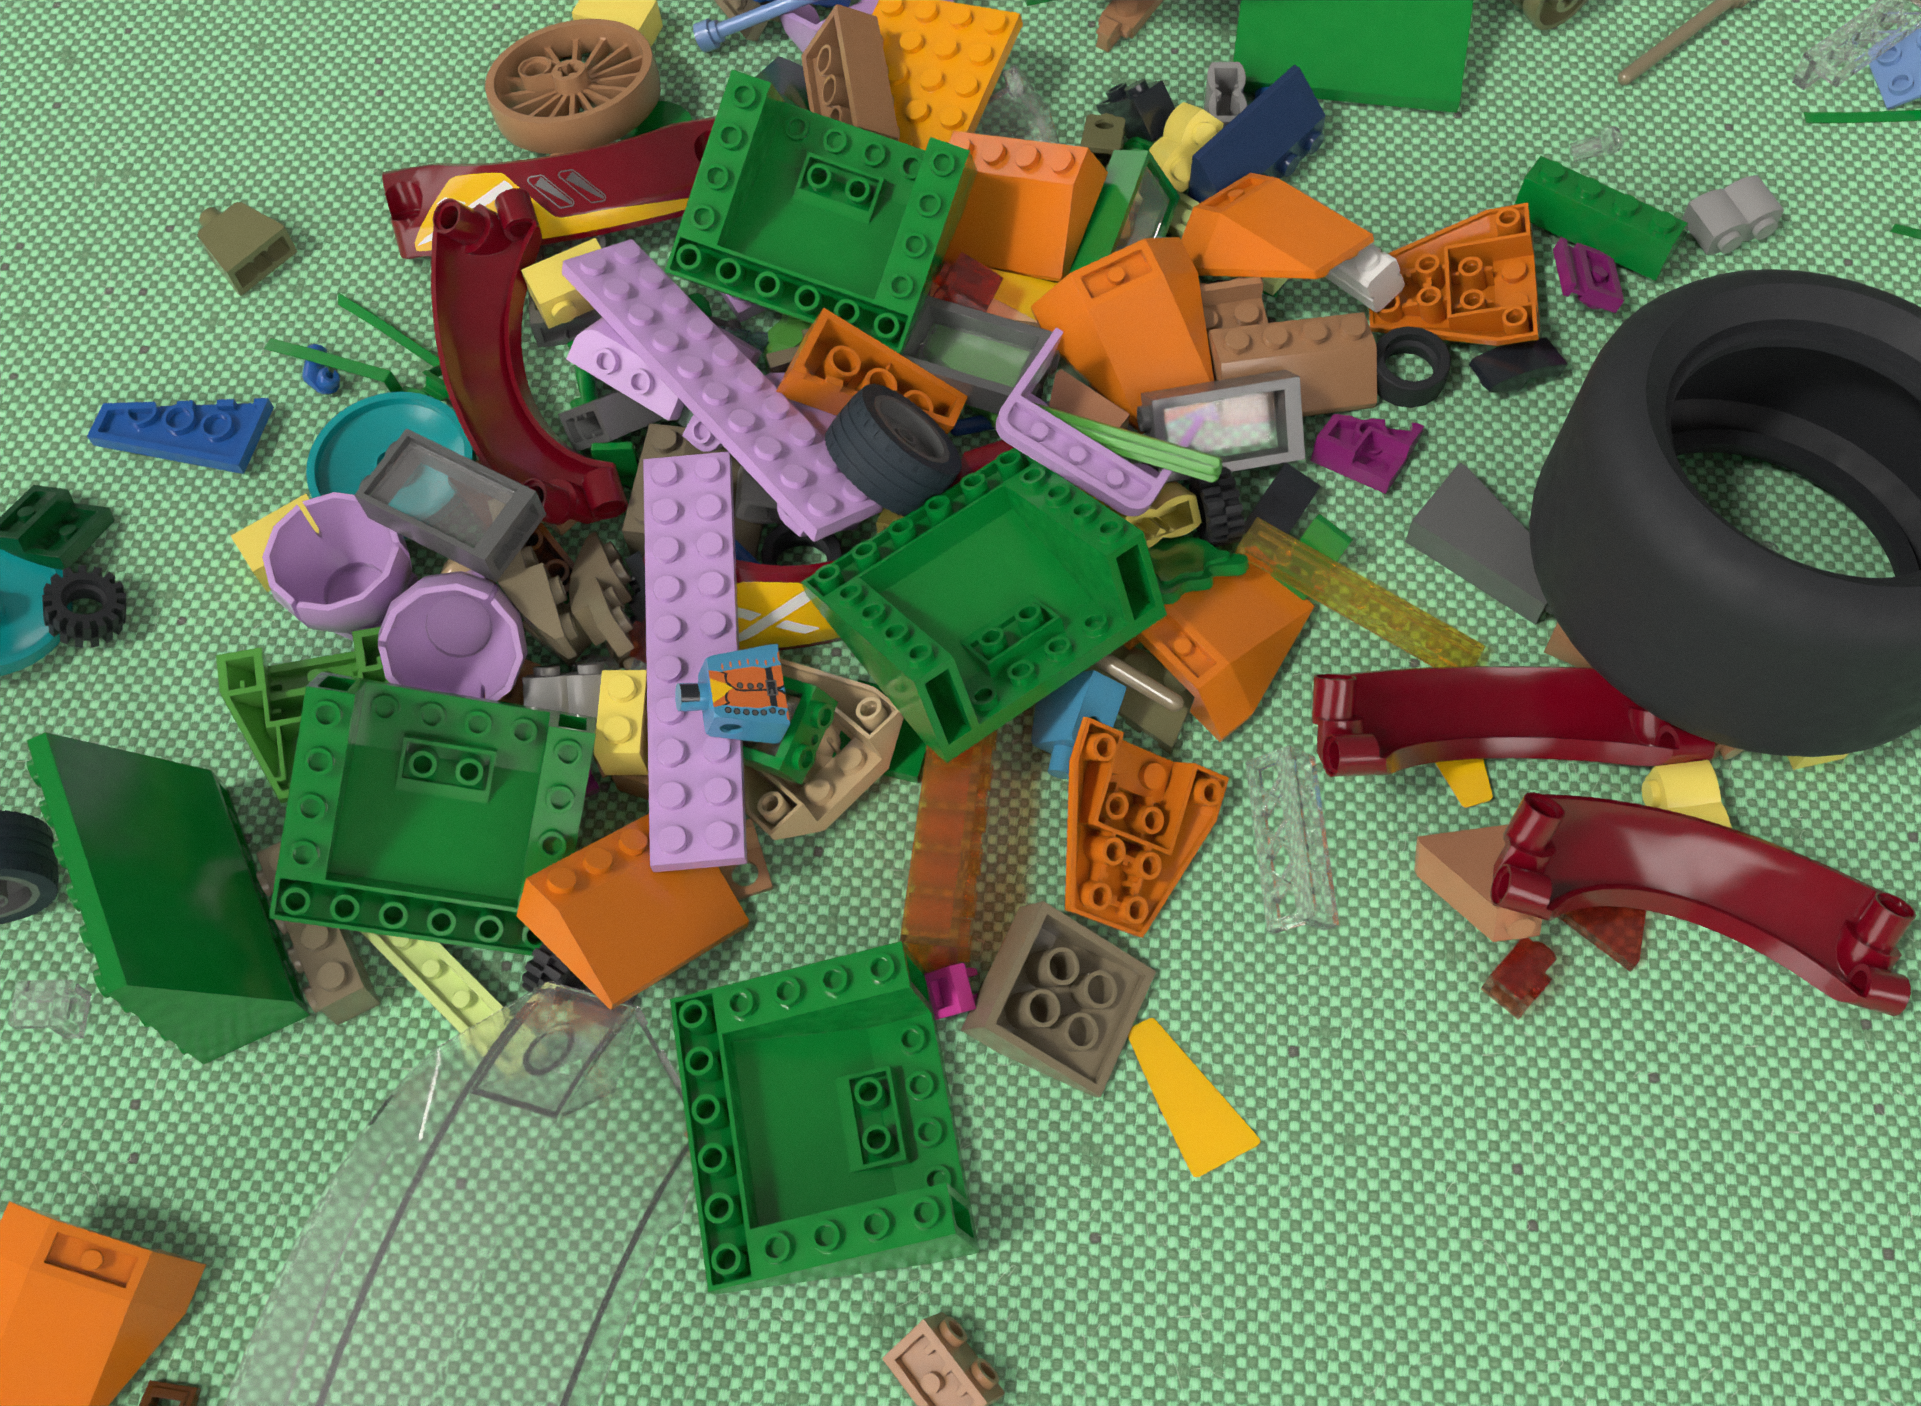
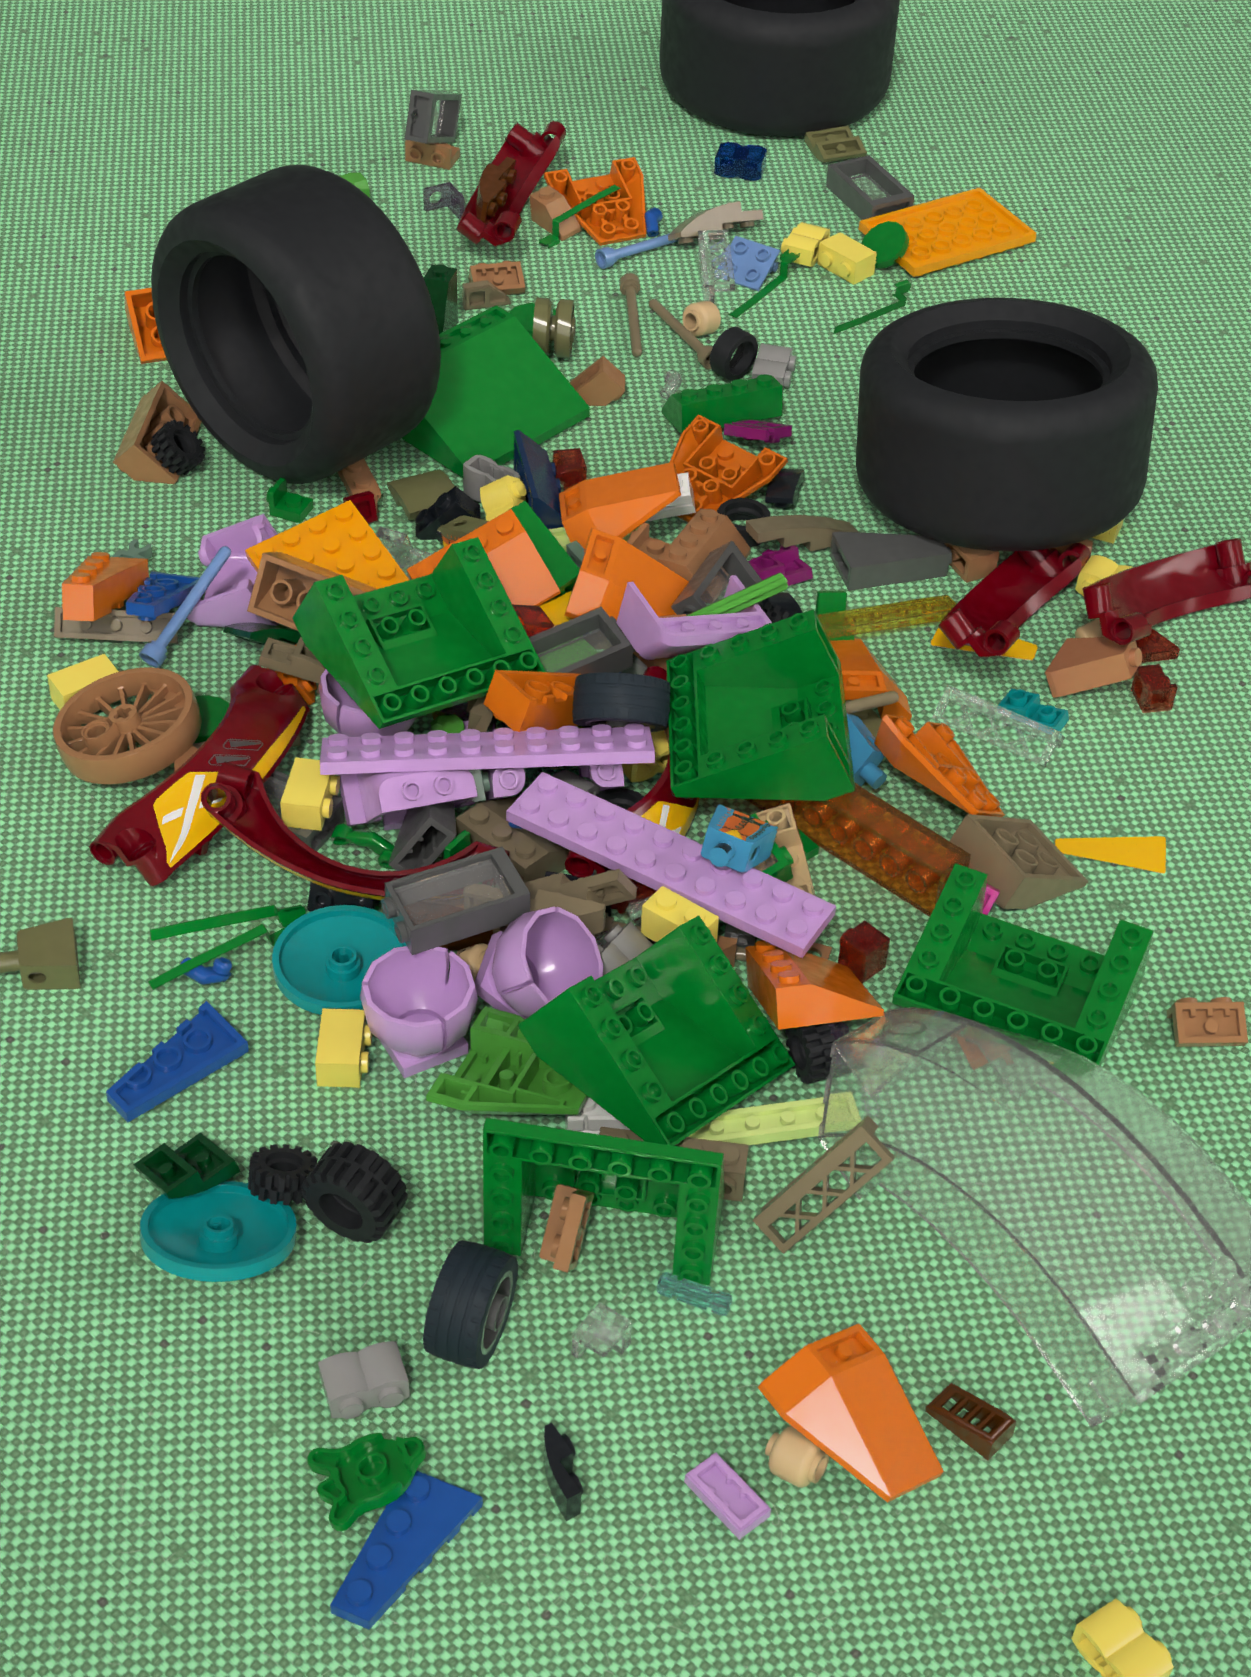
camera: 60 degrees left, 20 degrees down
(73, 679) = (354, 1192): none -> black tyre
(170, 1069) = (694, 1294): none -> clear light blue axle
(325, 1092) = (815, 1173): none -> dark tan fence
(769, 922) = (864, 950): none -> clear red brick
(1080, 33) = (365, 505): none -> dark red tile
(1167, 58) = (419, 491): none -> olive slope
(1332, 157) = (569, 467): none -> clear red brick
(1354, 865) = (1029, 706): none -> teal slope
(1447, 430) = (791, 530): none -> dark tan slope
(1509, 83) = (600, 383): none -> medium nougat slope
(1689, 141) = (703, 352): none -> dark tan piece
(1698, 143) = (724, 348): none -> black tyre
(1748, 92) = (701, 318): none -> tan head

